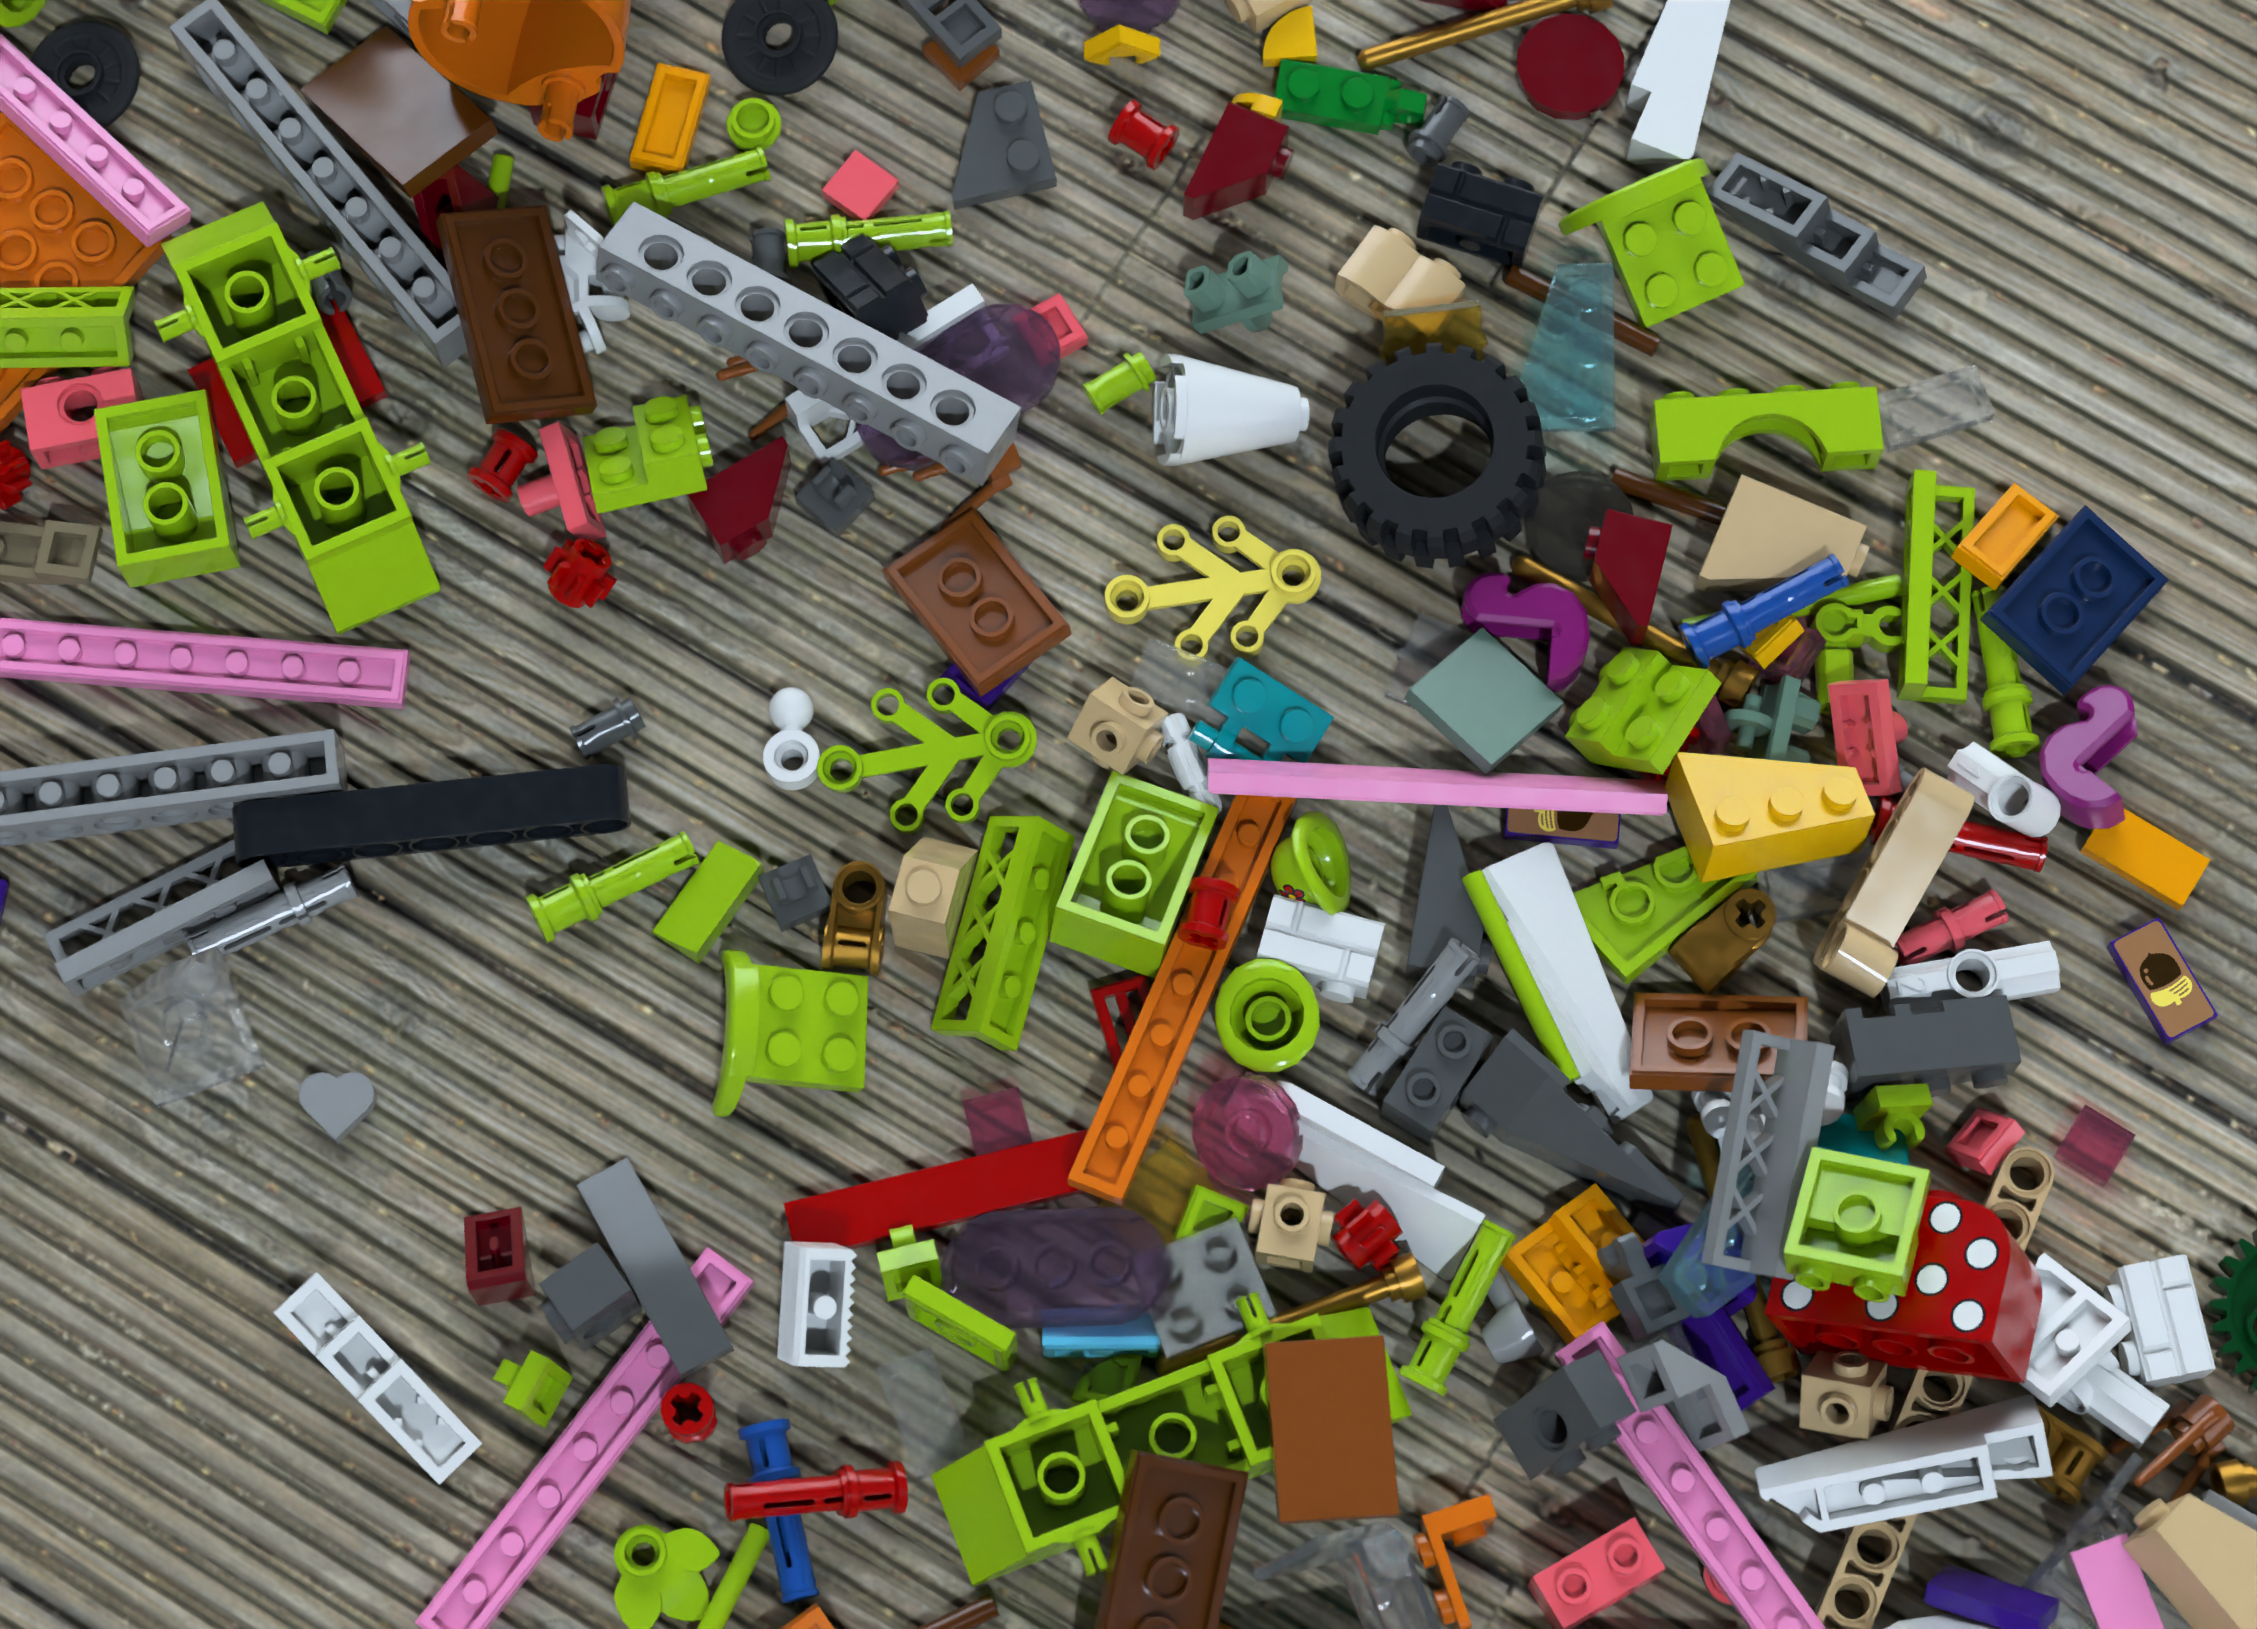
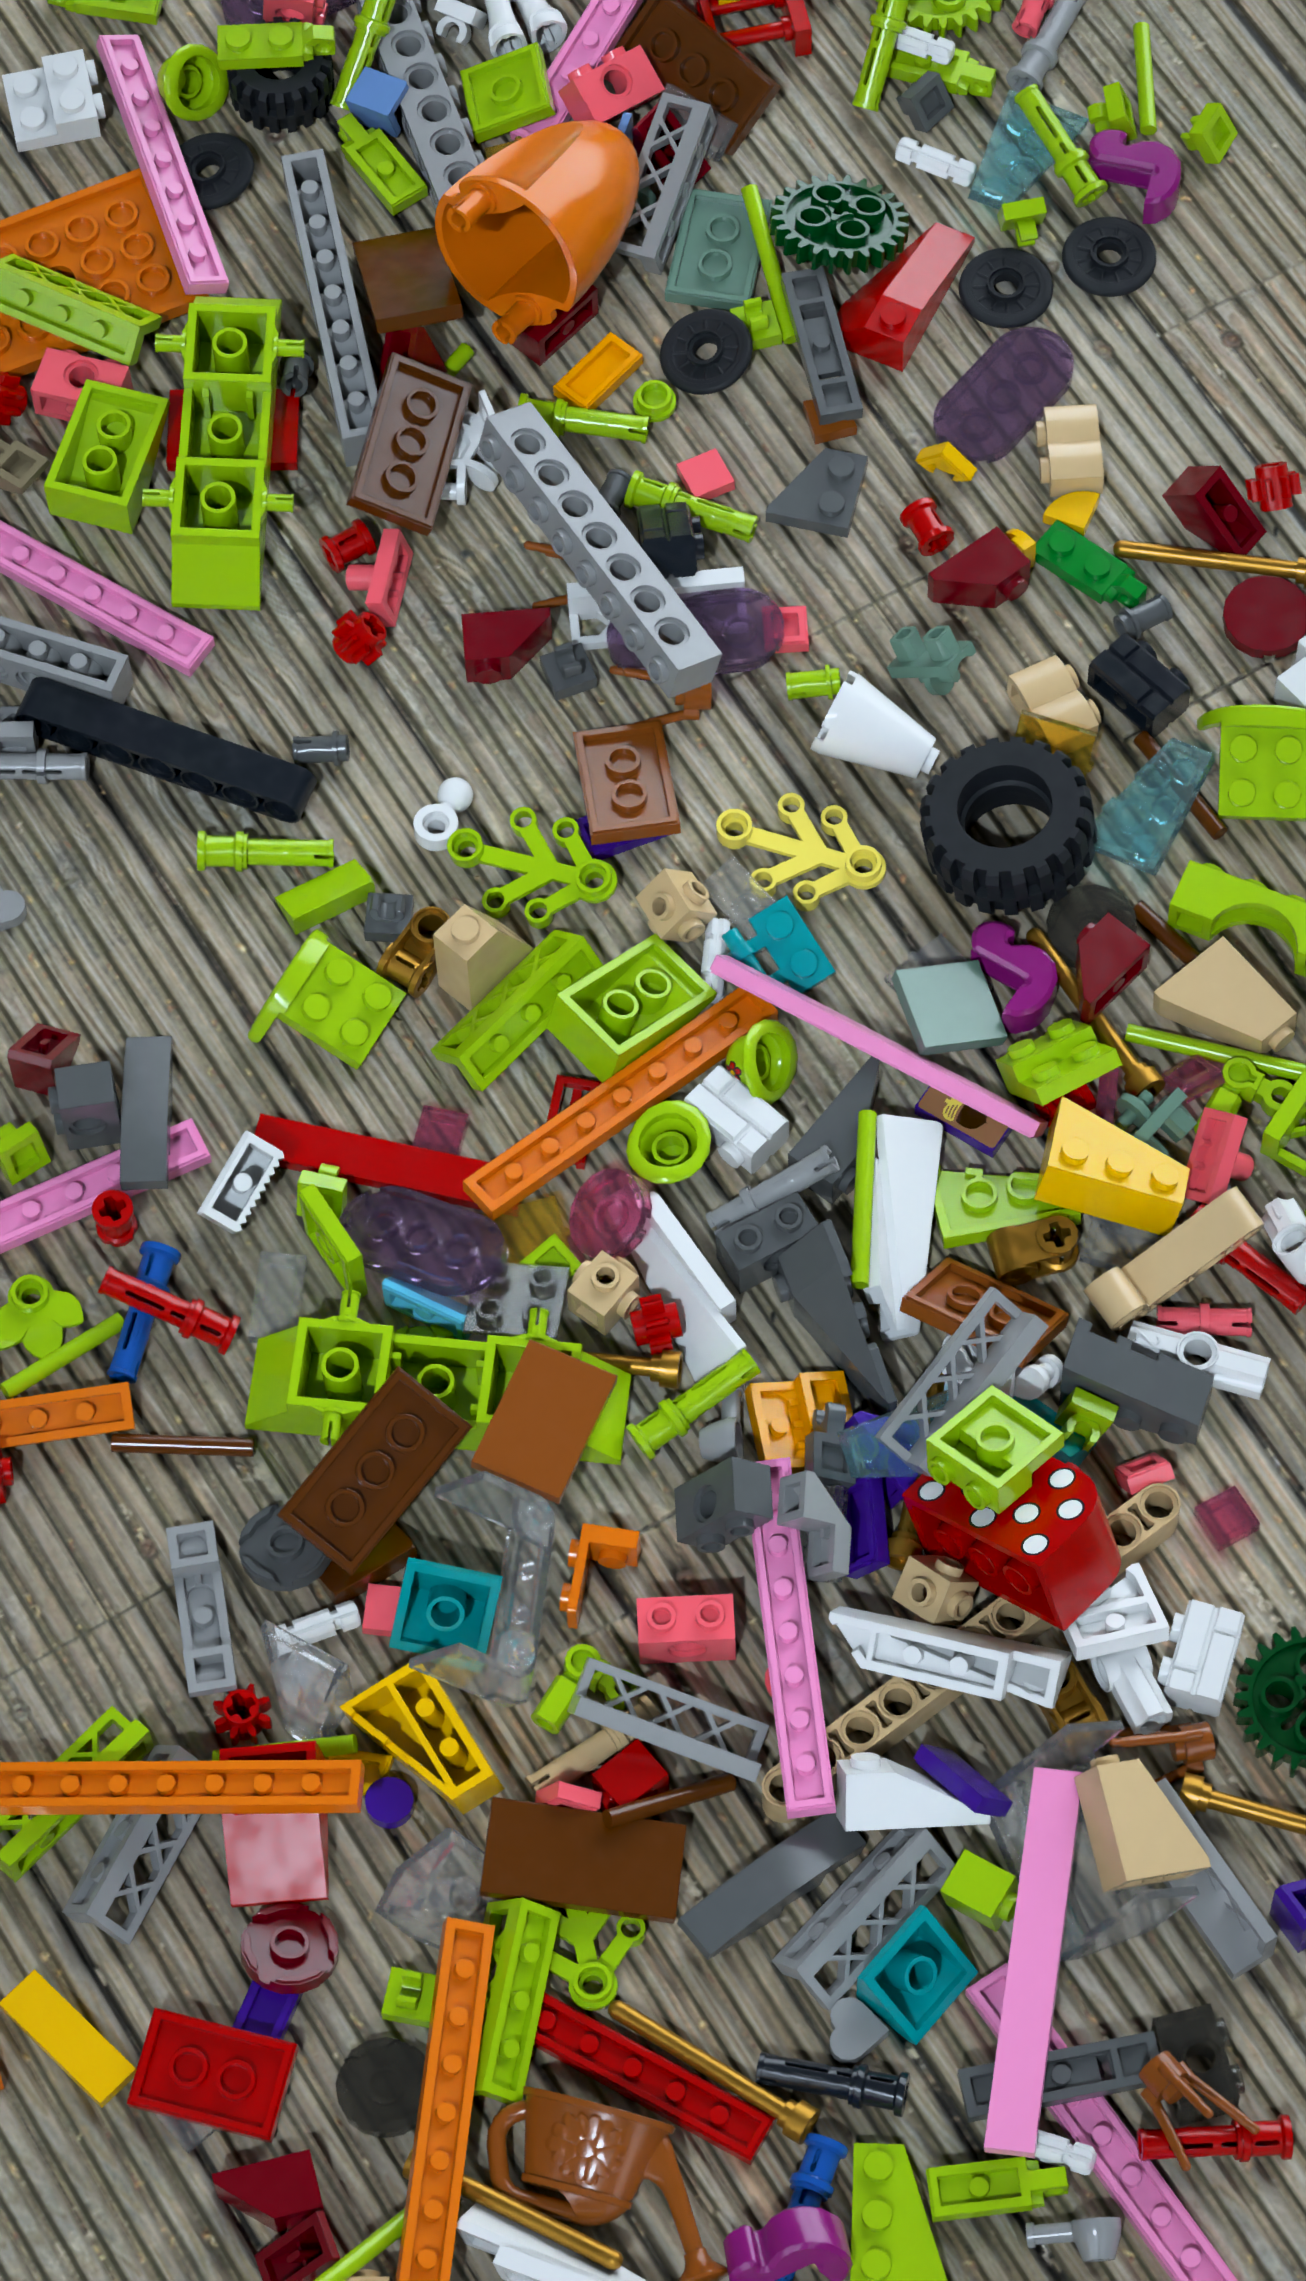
camera: 30 degrees right, 10 degrees down
(649, 460) = (451, 585): lime plate -> none
(1208, 913) = (664, 1052): red bush -> none
(1739, 622) = (1161, 1035): blue pin -> none
(1773, 641) = (1182, 1060): yellow tile -> none

